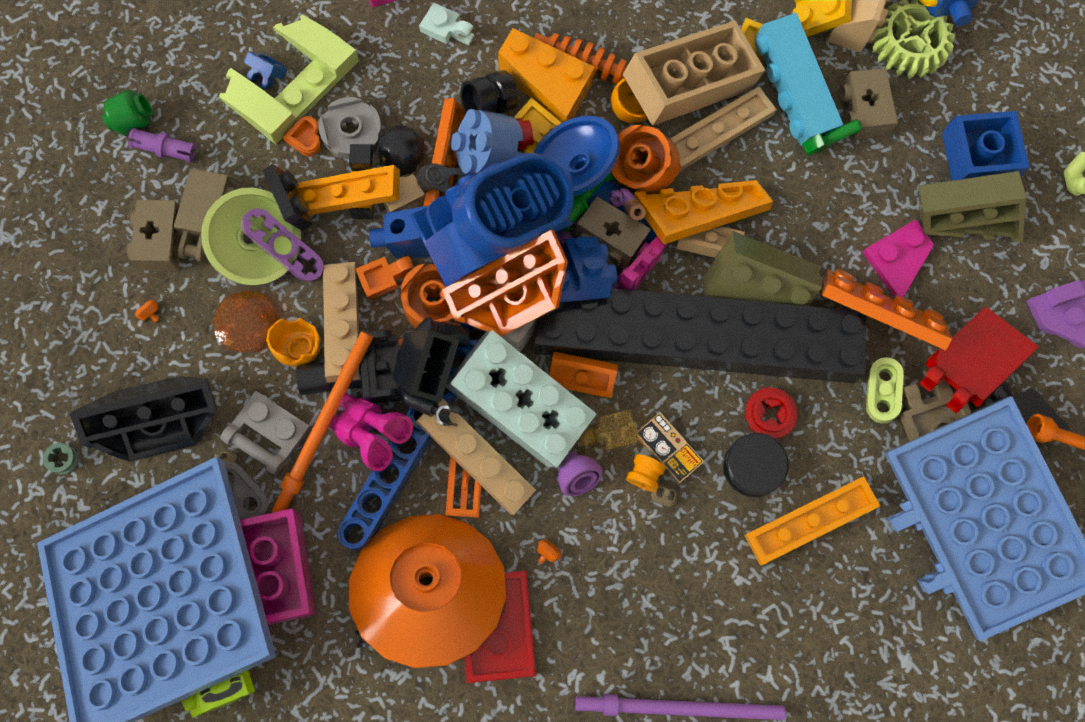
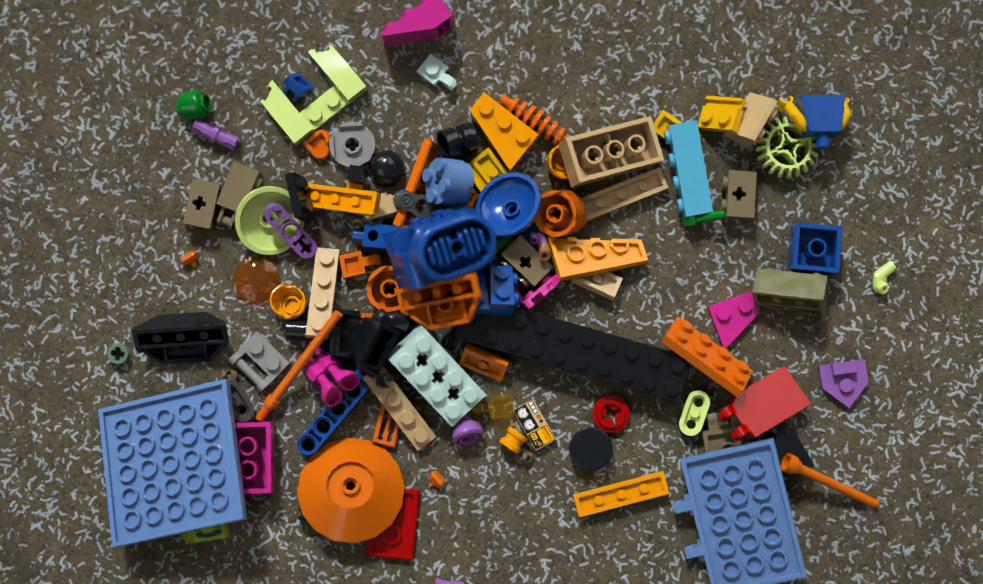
camera: 20 degrees right, 10 degrees up
(527, 134) = (478, 176): red plate -> none
(760, 273) = (624, 316): olive wedge -> none

